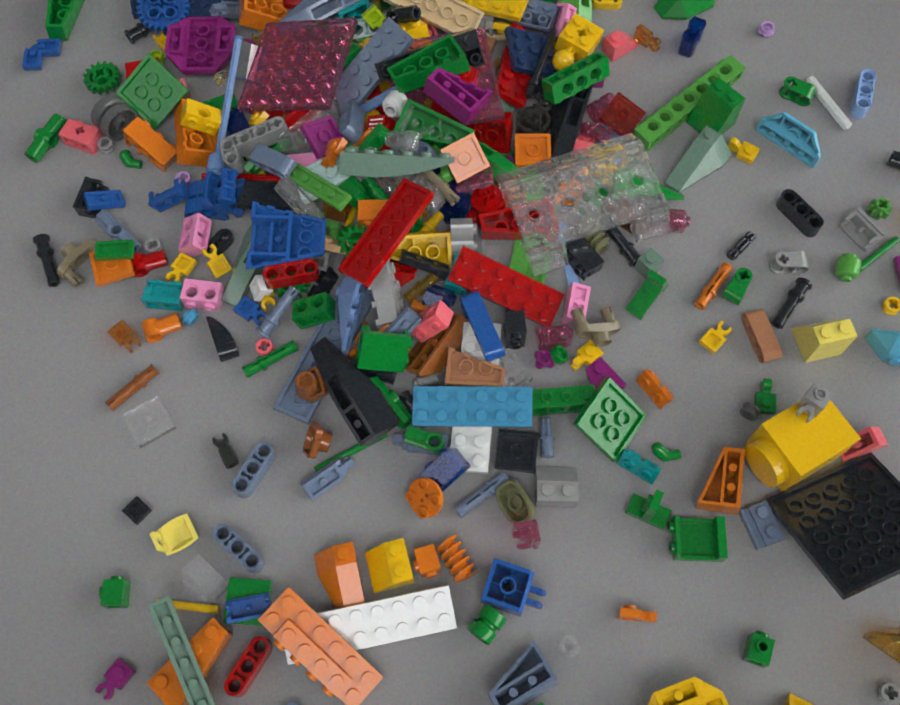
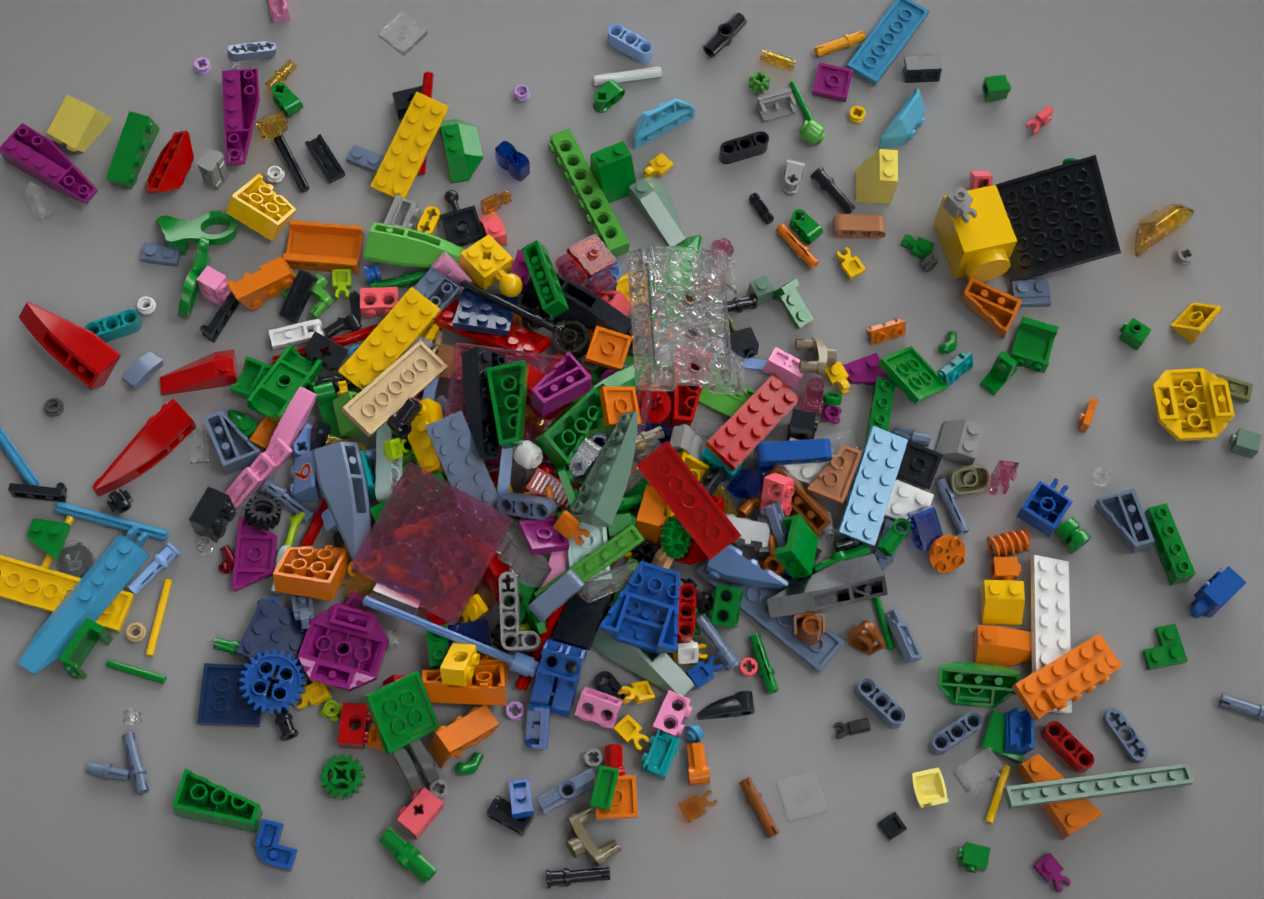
camera: 80 degrees left, 0 degrees up
(295, 553) = (976, 683): none -> green wedge
(616, 15) = (467, 216): none -> black plate

